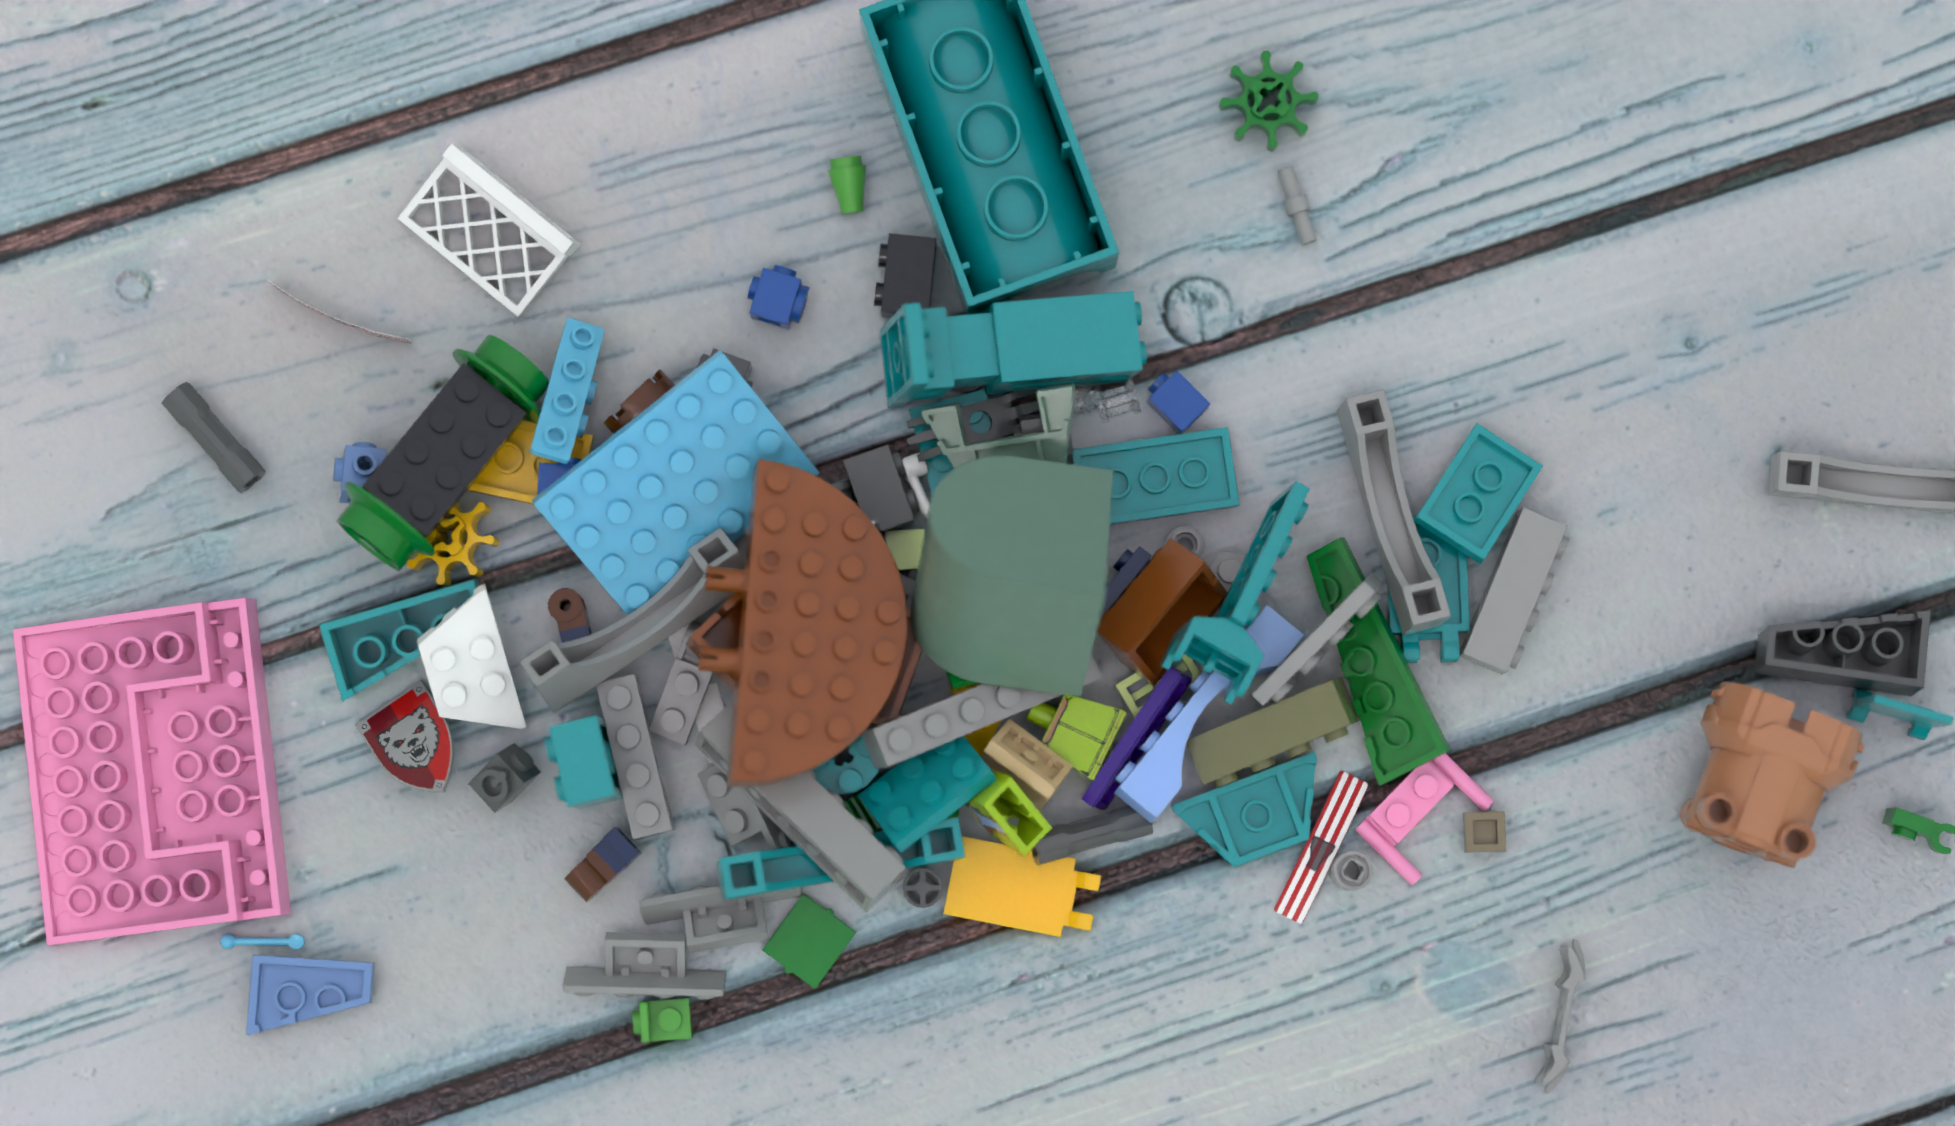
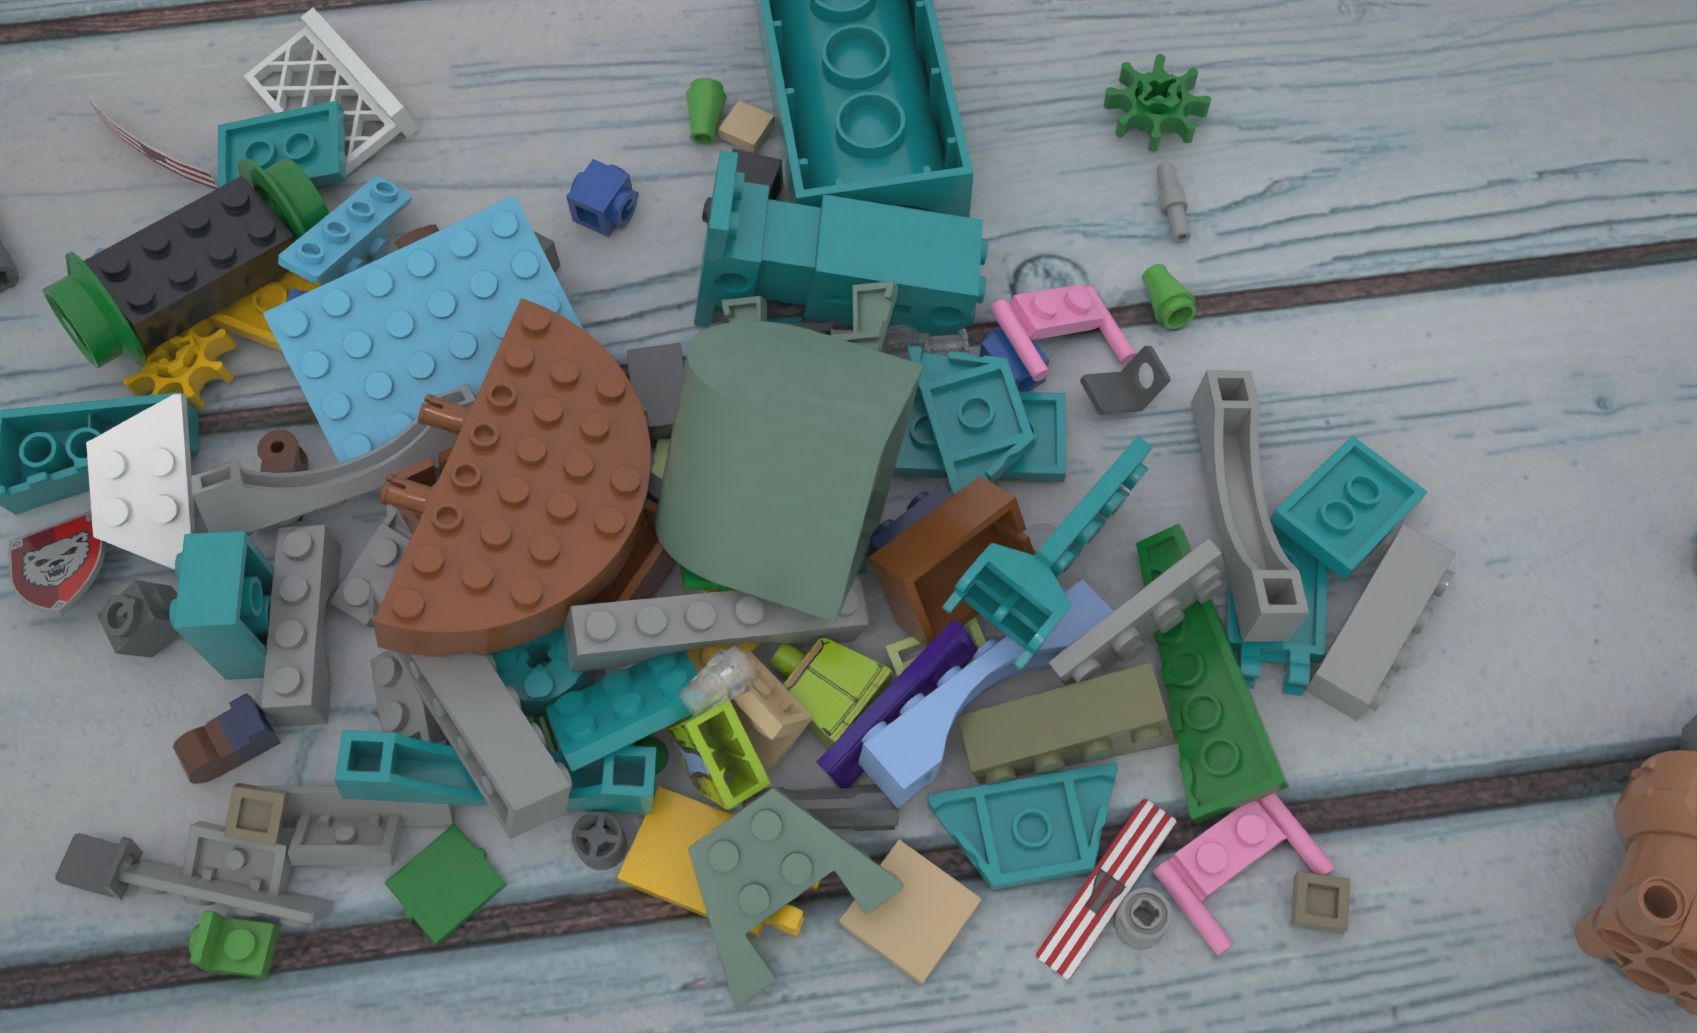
camera: 15 degrees right, 20 degrees down
(467, 304) = (306, 135): none -> teal plate
(536, 980) = (97, 863): none -> dark grey bracket
(657, 923) = (256, 813): none -> dark tan plate
(890, 190) = (746, 126): none -> tan tile
(1001, 767) = (720, 680): none -> clear cone
(1058, 887) = (760, 865): none -> sand green wing
(1152, 471) = (973, 414): none -> teal wing
(1173, 896) = (919, 920): none -> tan tile
(1208, 354) = (1056, 314): none -> bright pink plate
(1275, 409) = (1122, 390): none -> dark grey bracket
(1305, 312) = (1168, 297): none -> bright green cone

